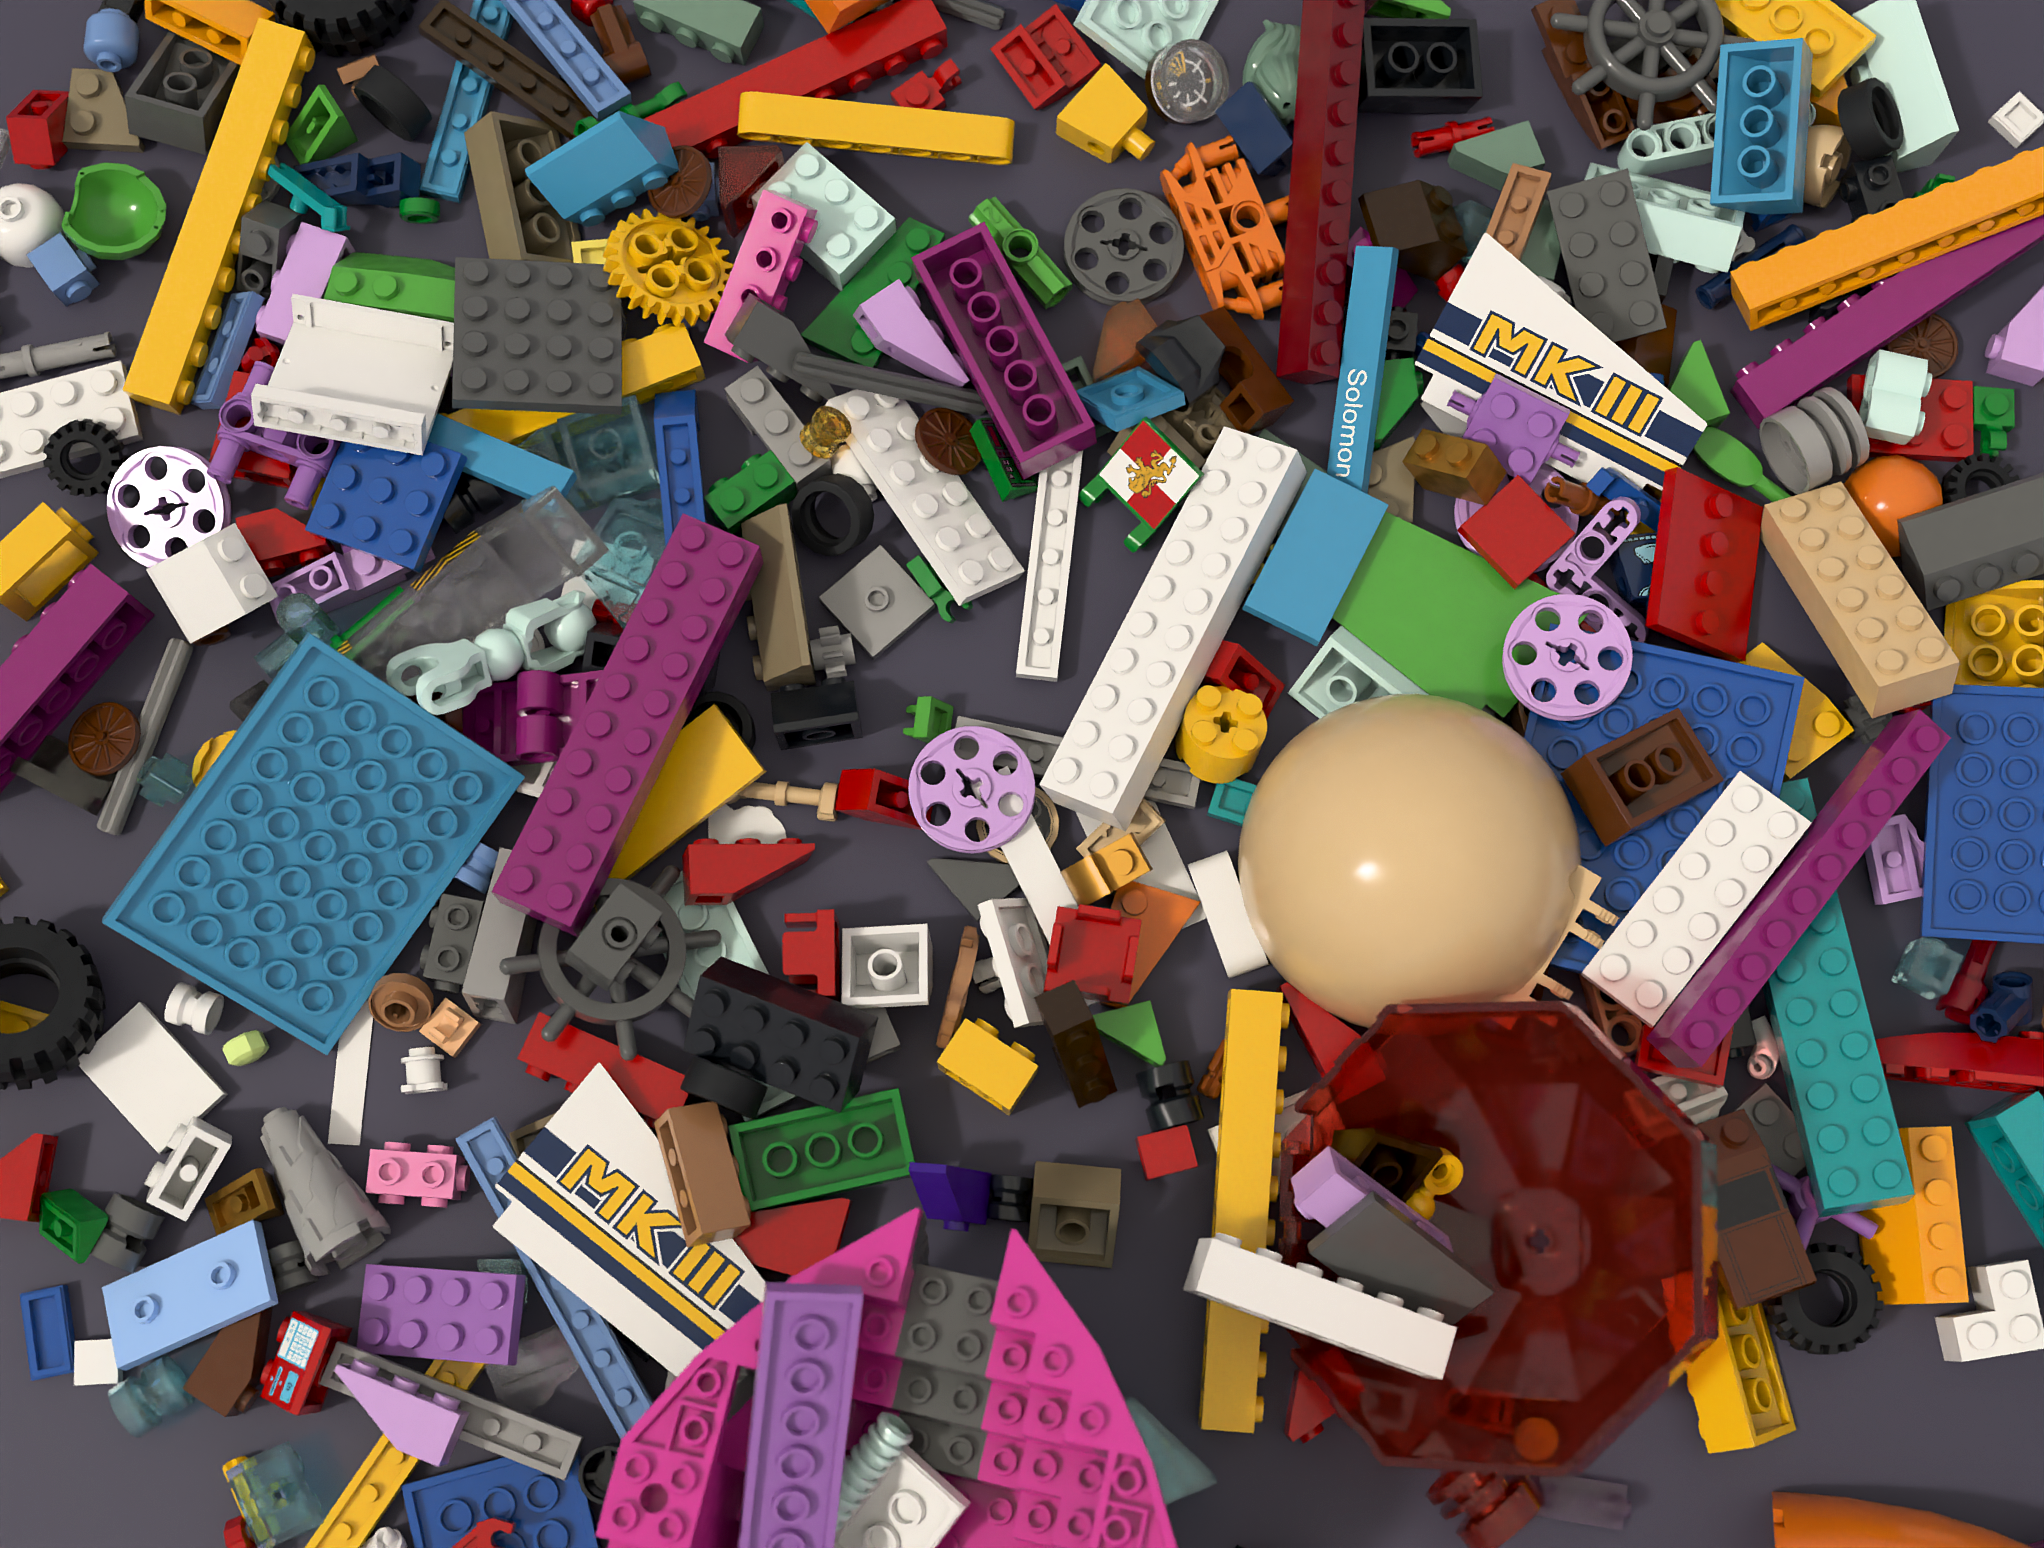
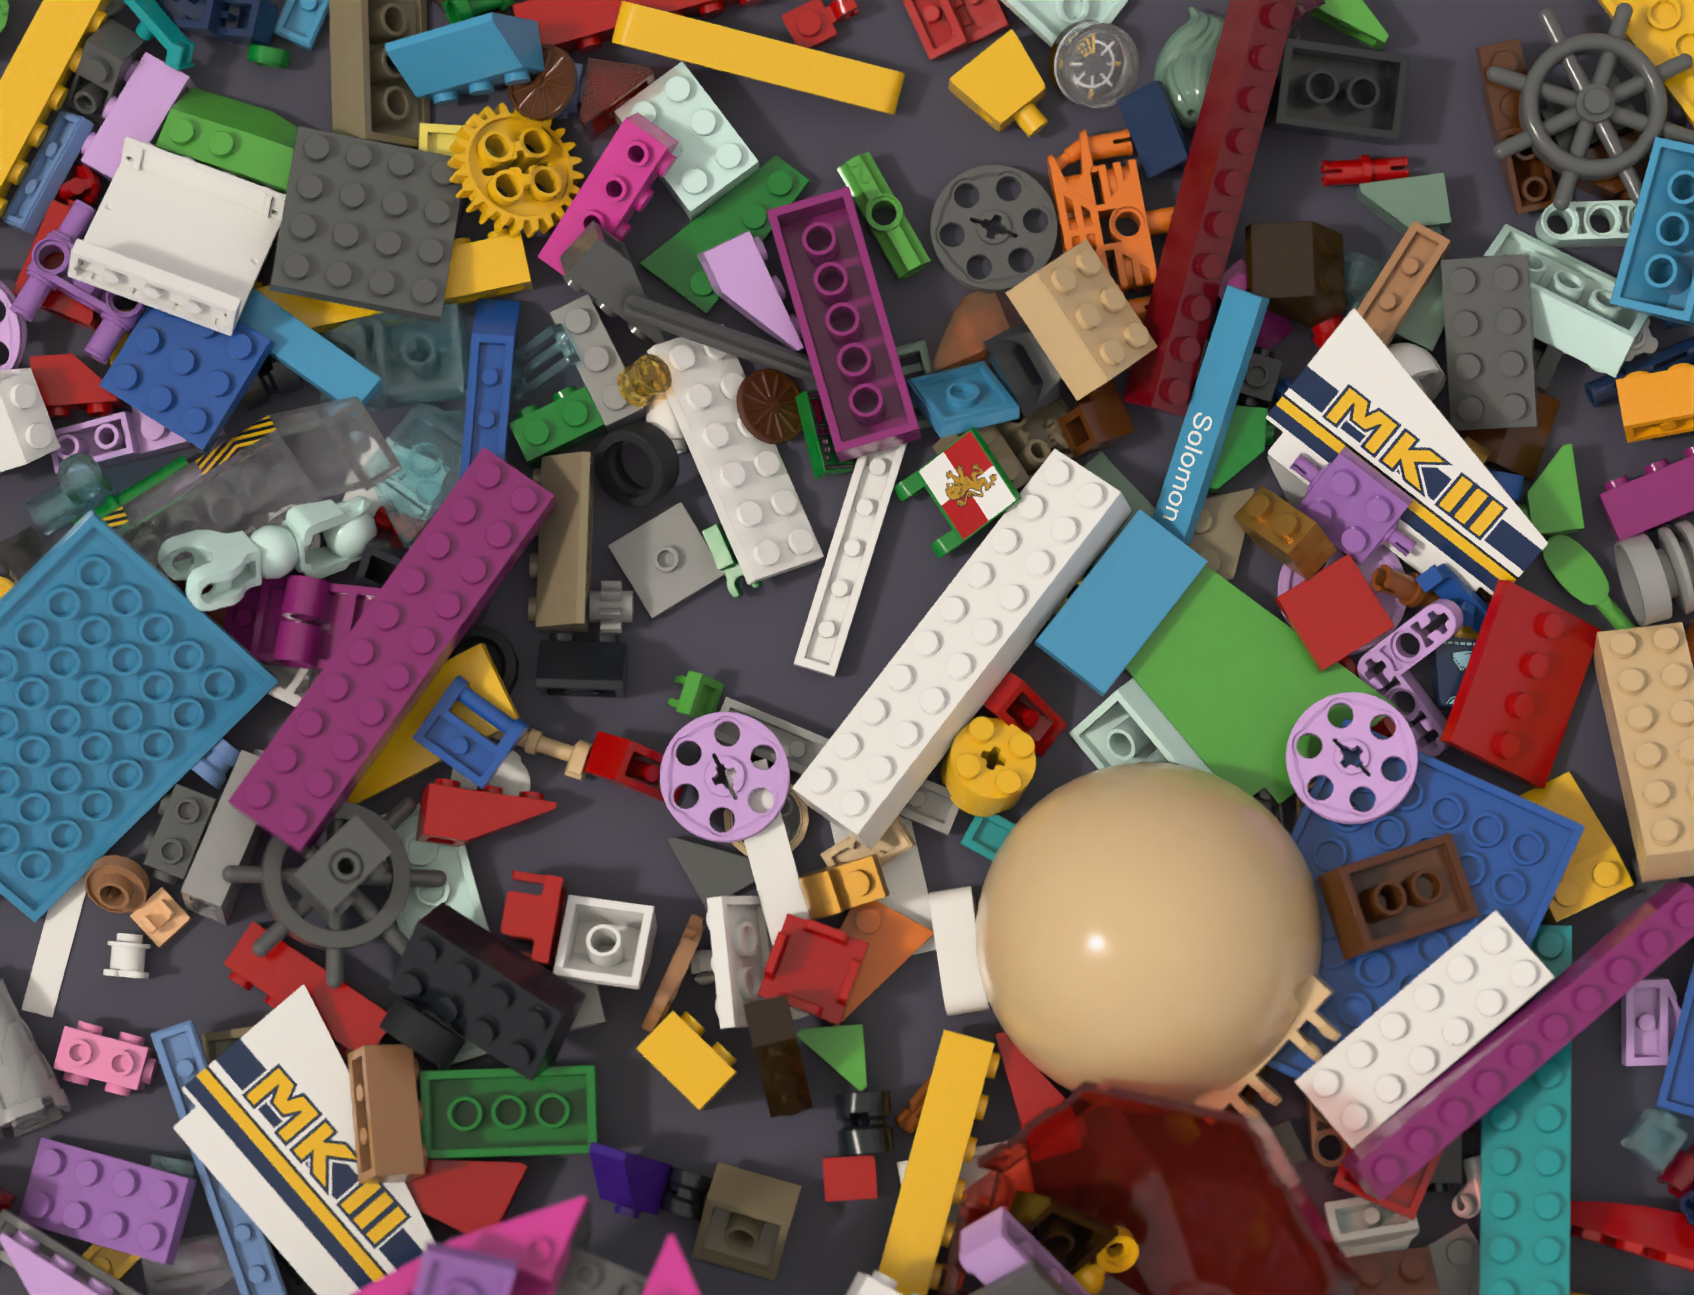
camera: 15 degrees right, 5 degrees up
(713, 802) = (462, 744): none -> blue plate
(751, 426) = (563, 344): none -> clear light blue tile
(1226, 300) = (1081, 319): none -> tan brick

